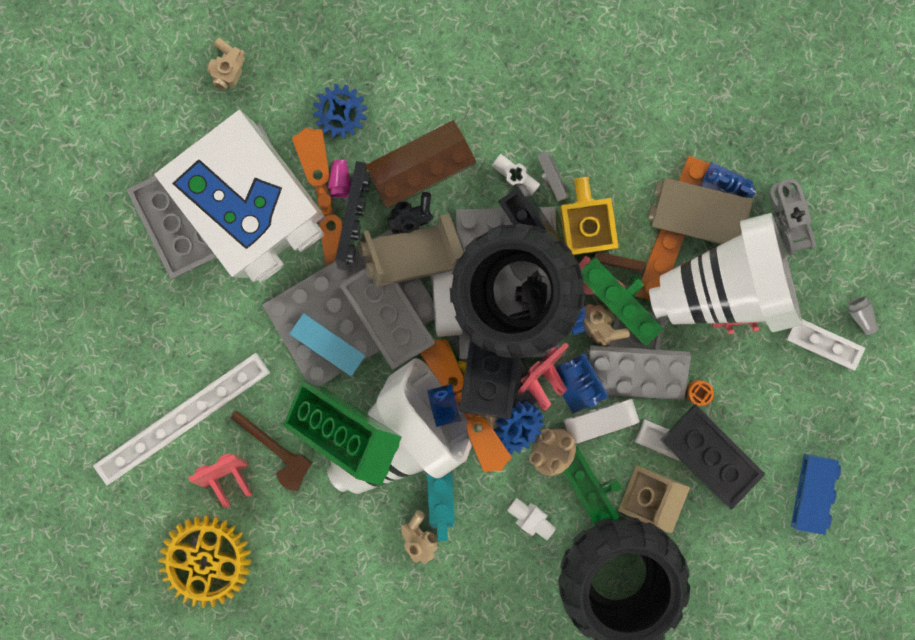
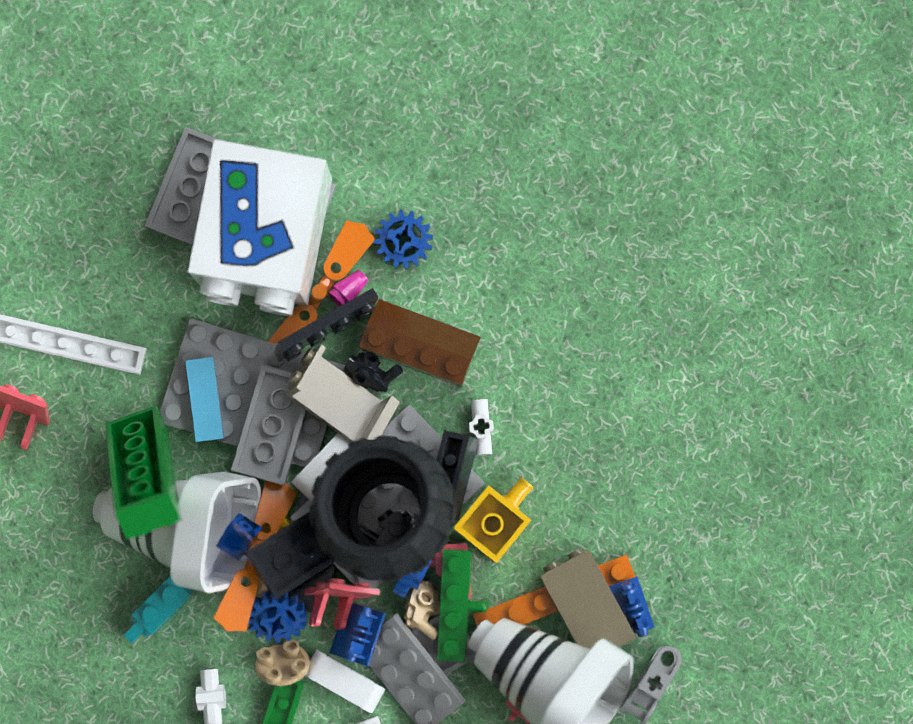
camera: 55 degrees right, 5 degrees down
(226, 70) = (355, 120): tan piece -> none
(297, 465) = (83, 465): reddish brown piece -> none
(419, 544) = (106, 623): tan piece -> none
(552, 176) = (507, 458): light grey plate -> none
(619, 262) = (487, 575): reddish brown tile -> none

